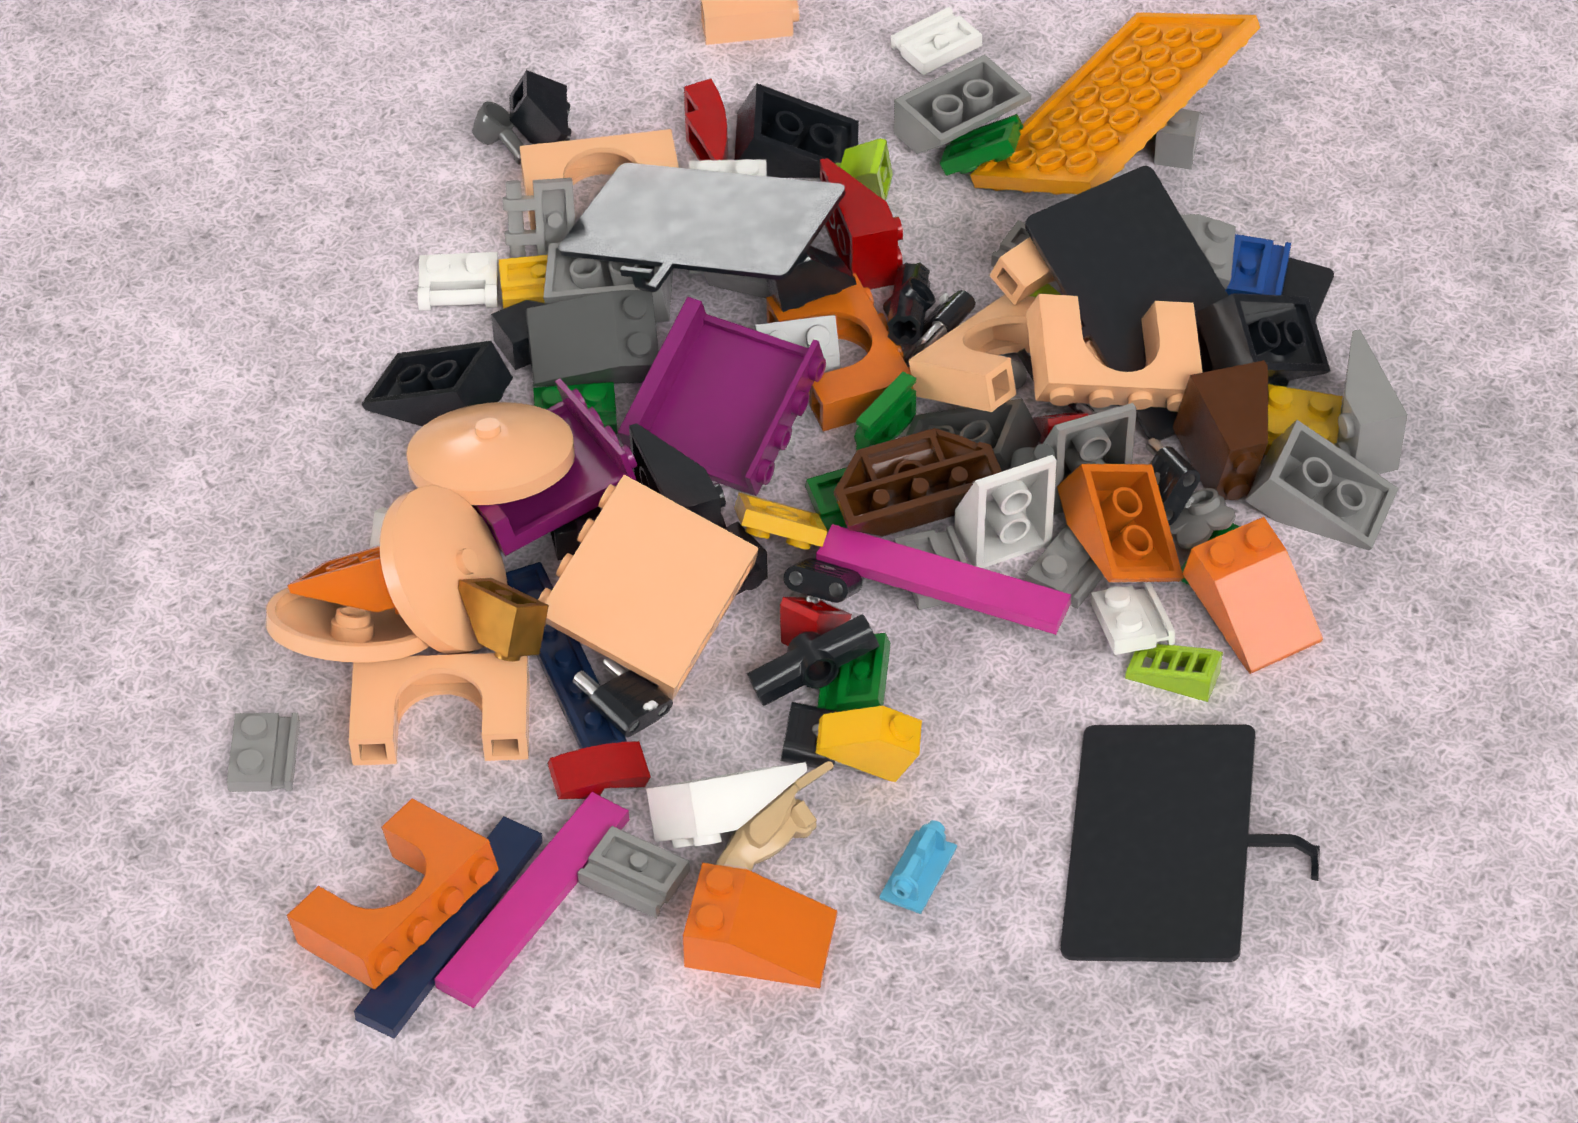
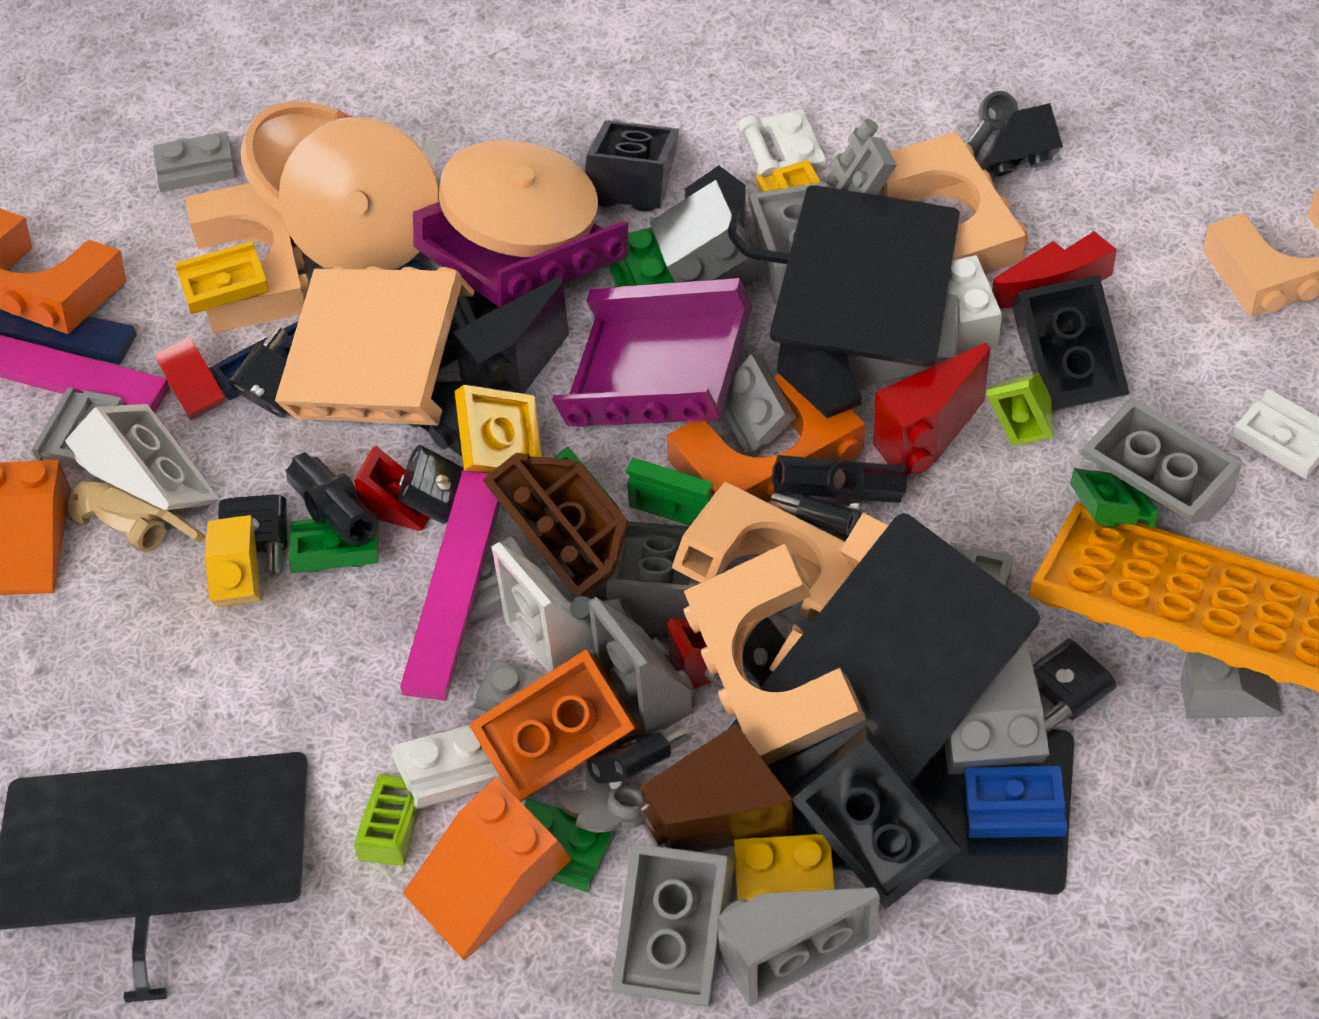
camera: 80 degrees right, 5 degrees up
(501, 703) = (221, 277): none -> yellow plate
(504, 617) = (310, 246): pearl gold slope -> none
(919, 868) = (98, 641): medium azure hinge -> none

